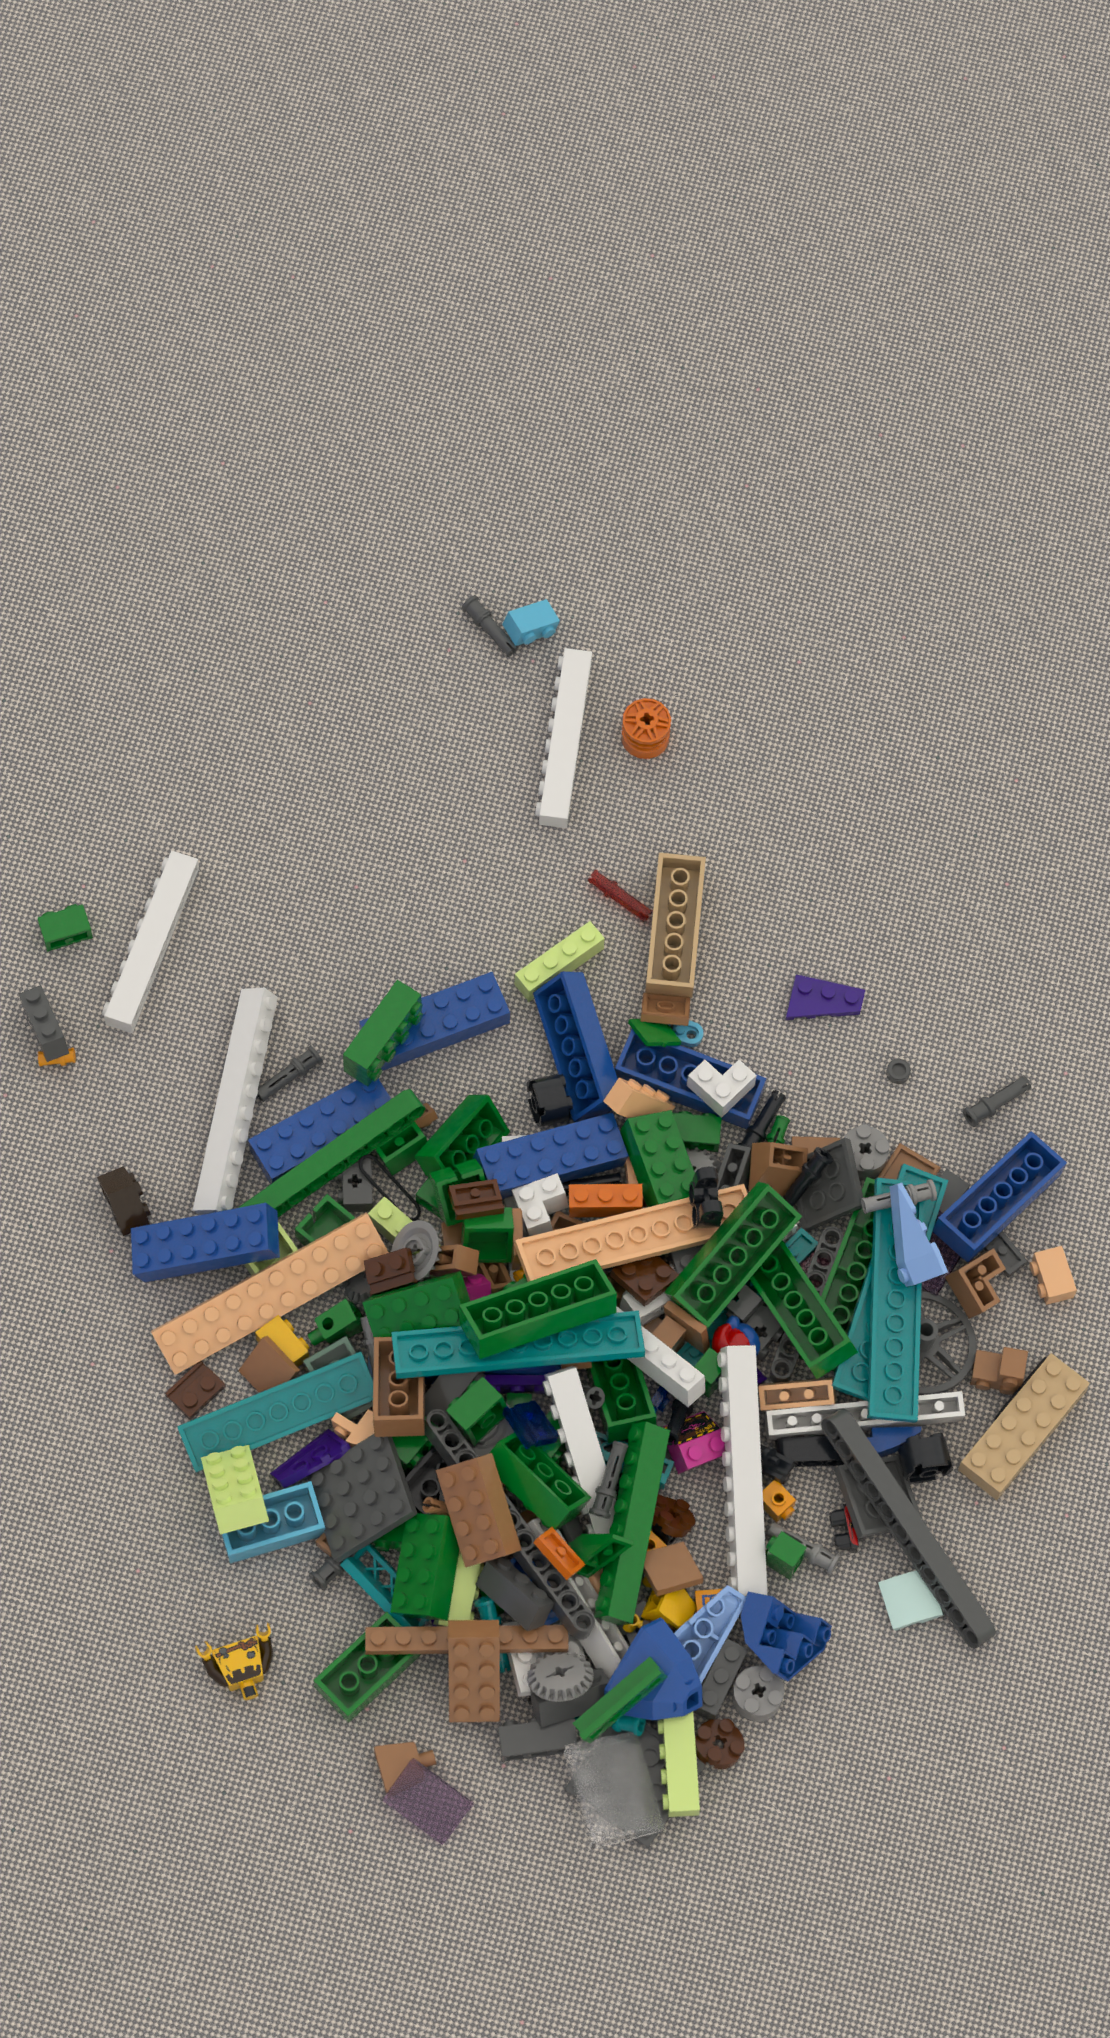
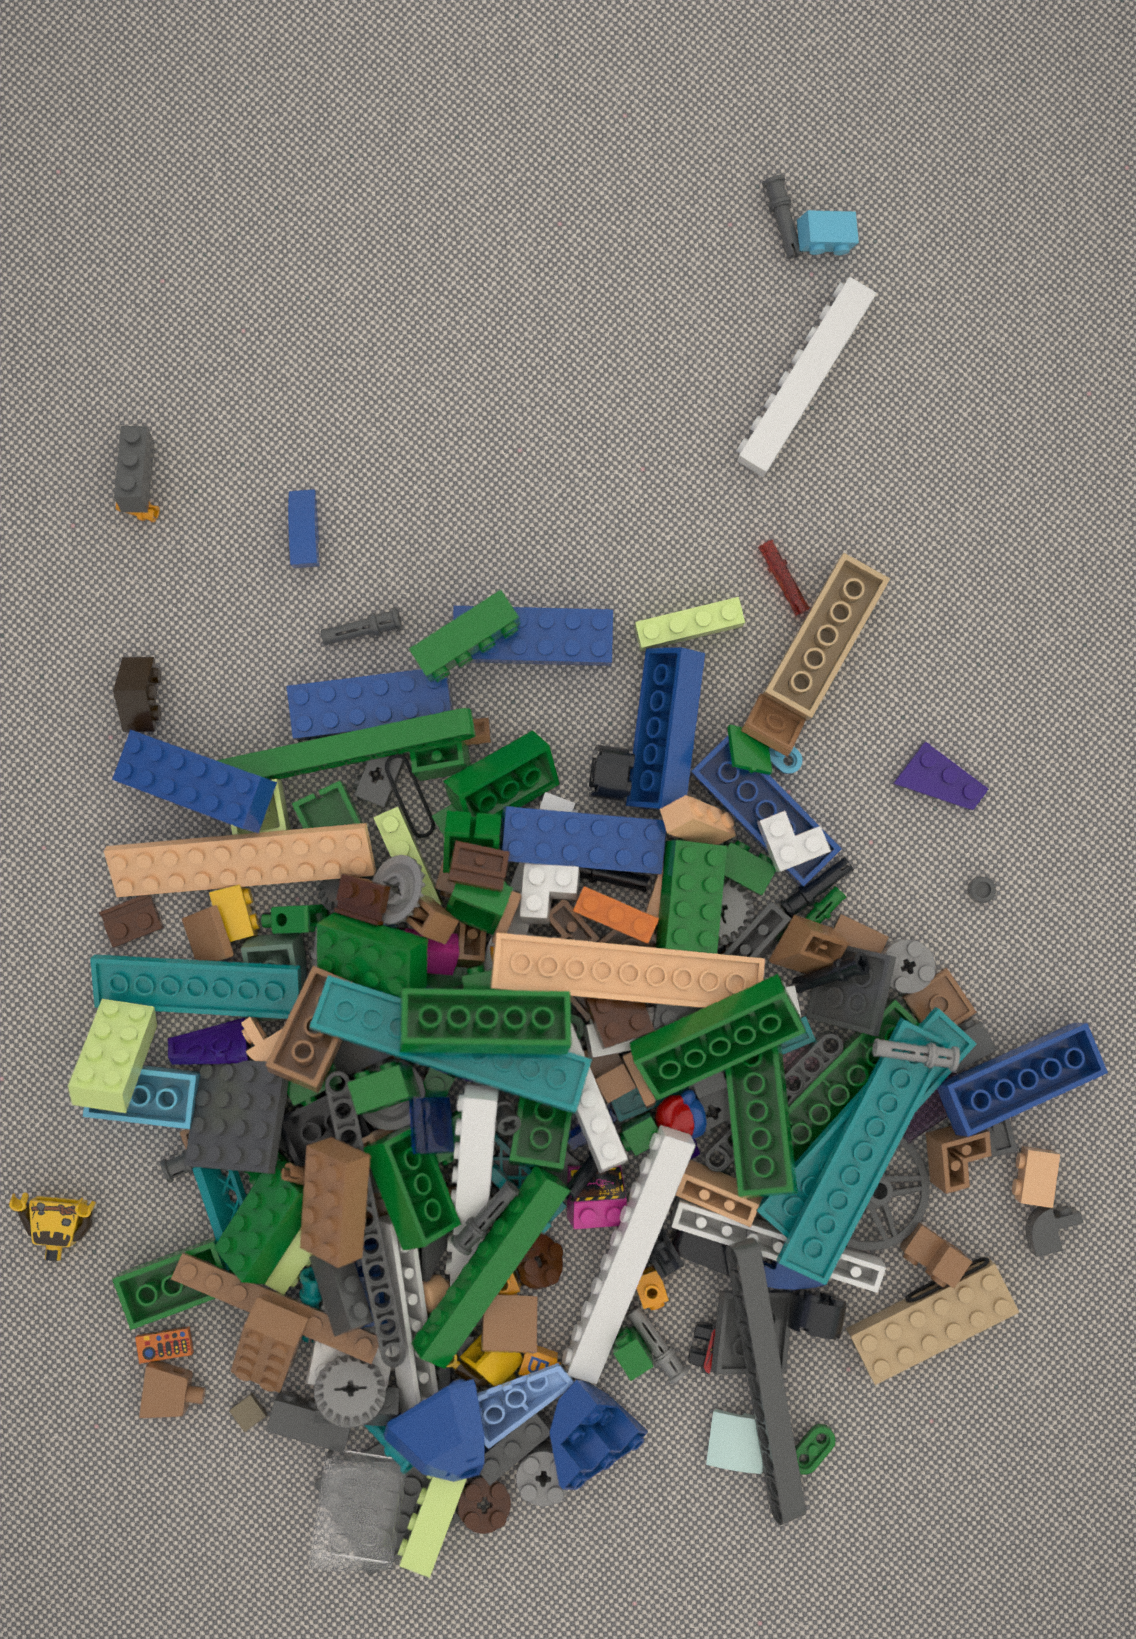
camera: 30 degrees right, 20 degrees up
(64, 927) = (202, 369): green brick -> none
(151, 941) = (284, 422): white brick -> none
(205, 1017) = (303, 529): none -> blue slope
(235, 1101) = (293, 637): white brick -> none
(380, 1731) = (164, 1345): none -> tile
(427, 1801) = (176, 1440): clear purple piece -> none
(479, 1758) = (248, 1412): none -> dark tan tile
(559, 1553) = (398, 1278): orange plate -> none
(598, 1550) = (438, 1283): green slope -> none
(619, 1700) = (394, 1450): green fence -> none
(641, 739) = (879, 406): orange wheel -> none
(703, 1196) = (714, 965): black piece -> none
(915, 1256) = (902, 1121): light blue wedge -> none
(976, 1577) = (814, 1449): none -> green plate
(988, 1105) = (1056, 968): dark grey pin -> none
(1079, 1312) = (1043, 1228): none -> dark grey brick

